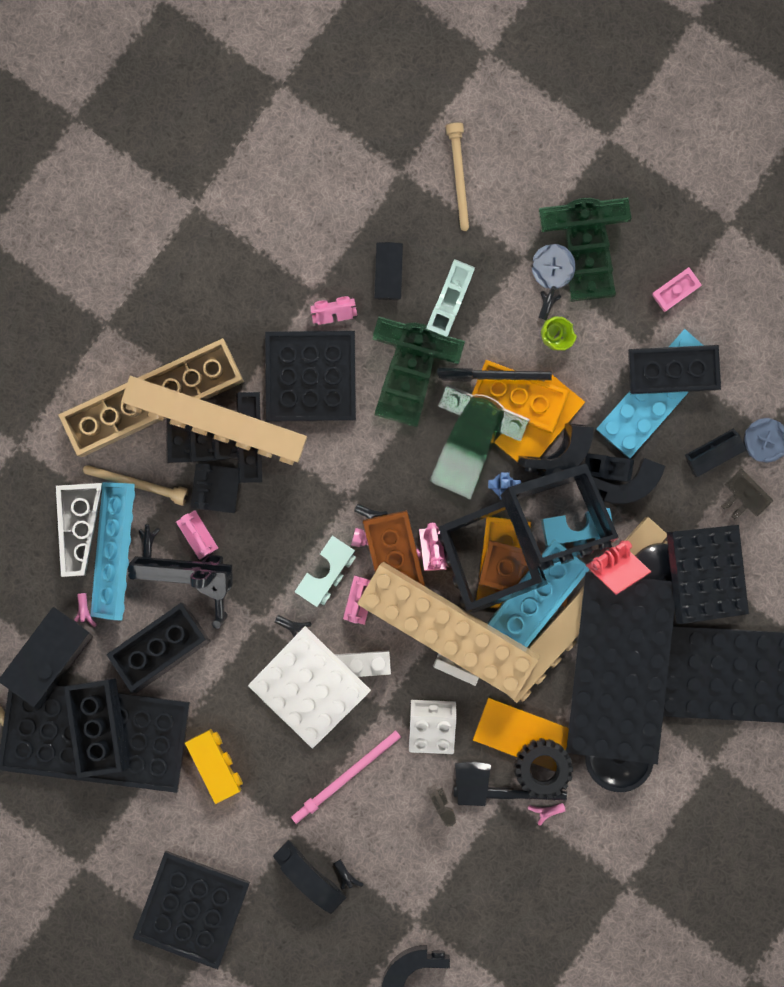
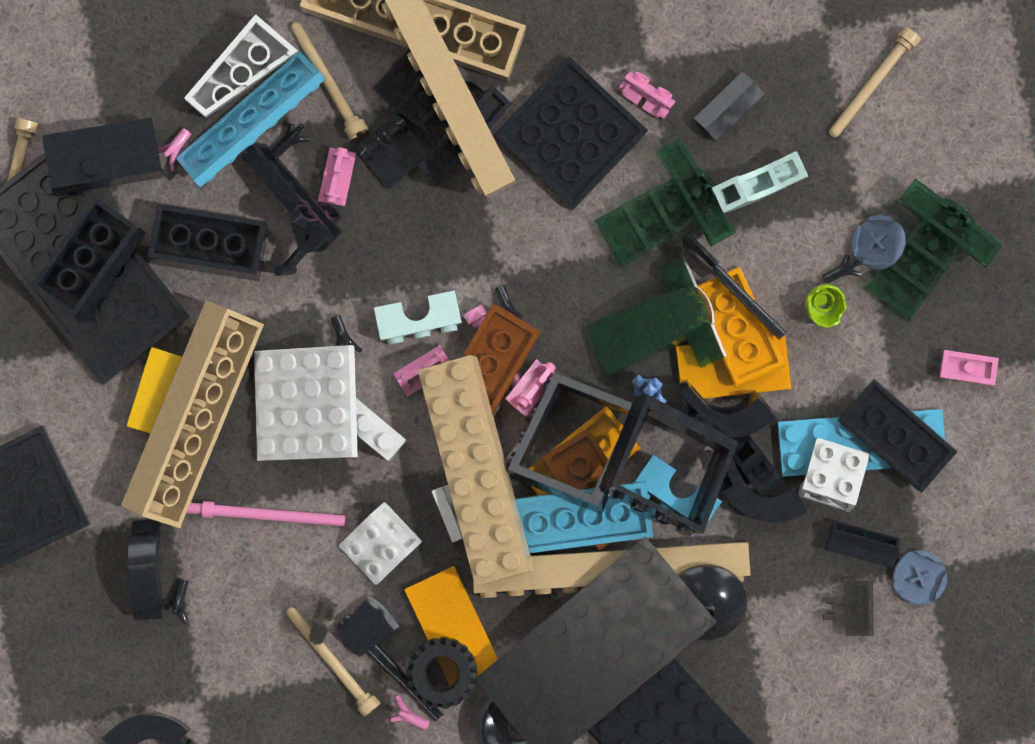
camera: 50 degrees right, 0 degrees up
(248, 760) = (192, 415): none -> tan brick
(514, 828) = (364, 701): none -> tan piece
(618, 567) = (677, 560): coral hinge -> none
(660, 428) = (834, 475): none -> white bracket
(707, 573) = (751, 642): black plate -> none

